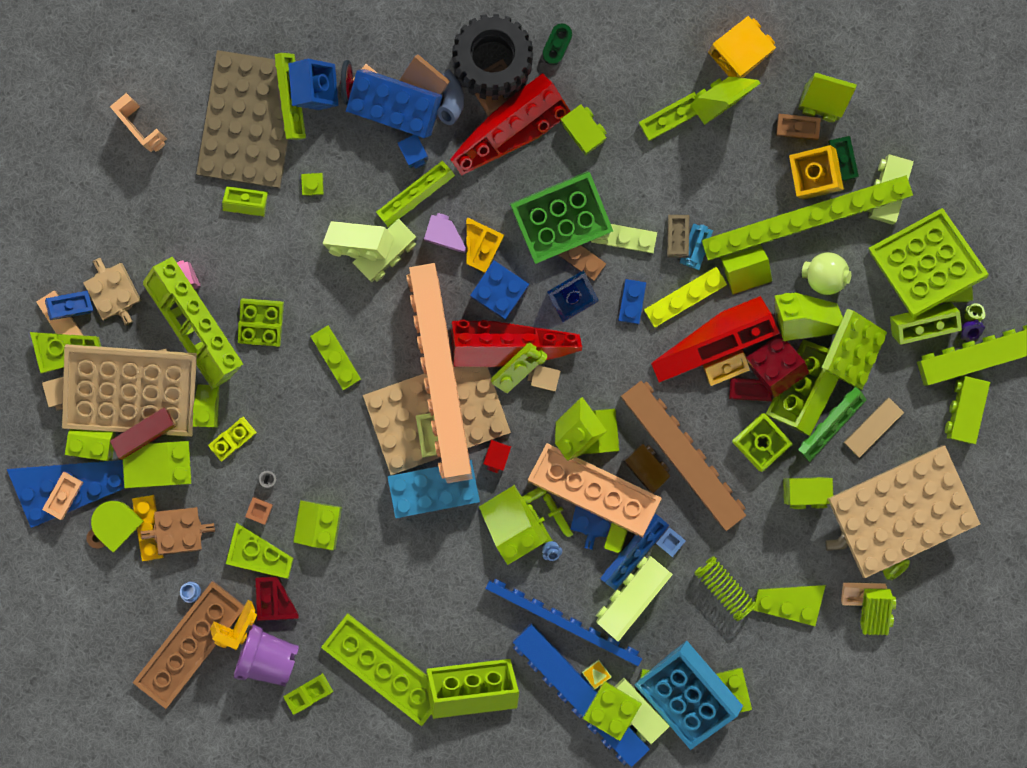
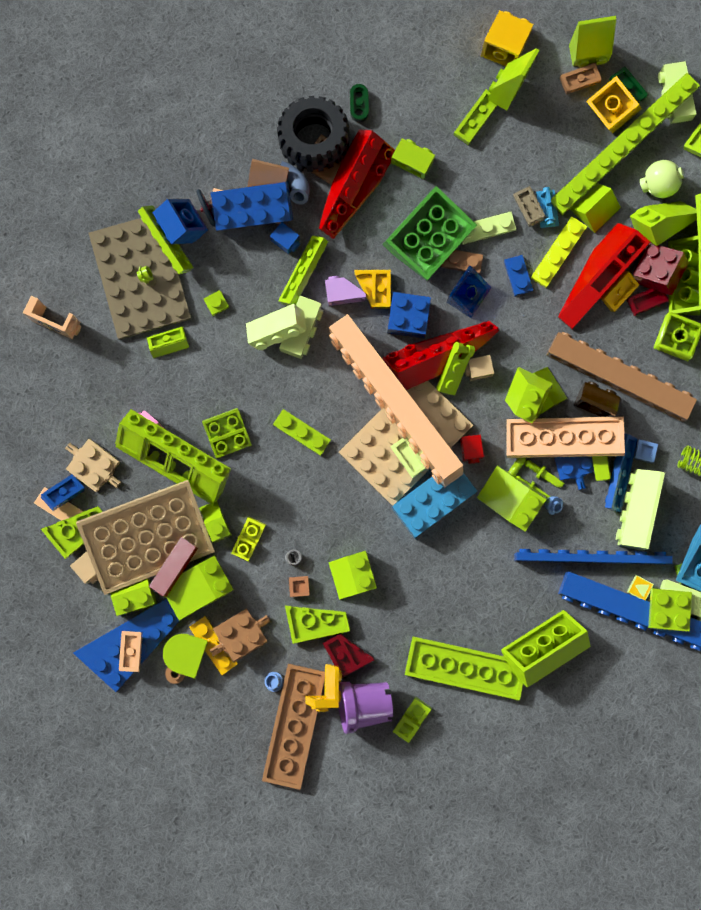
camera: 25 degrees left, 5 degrees down
(252, 122) = (145, 274): none -> lime plate

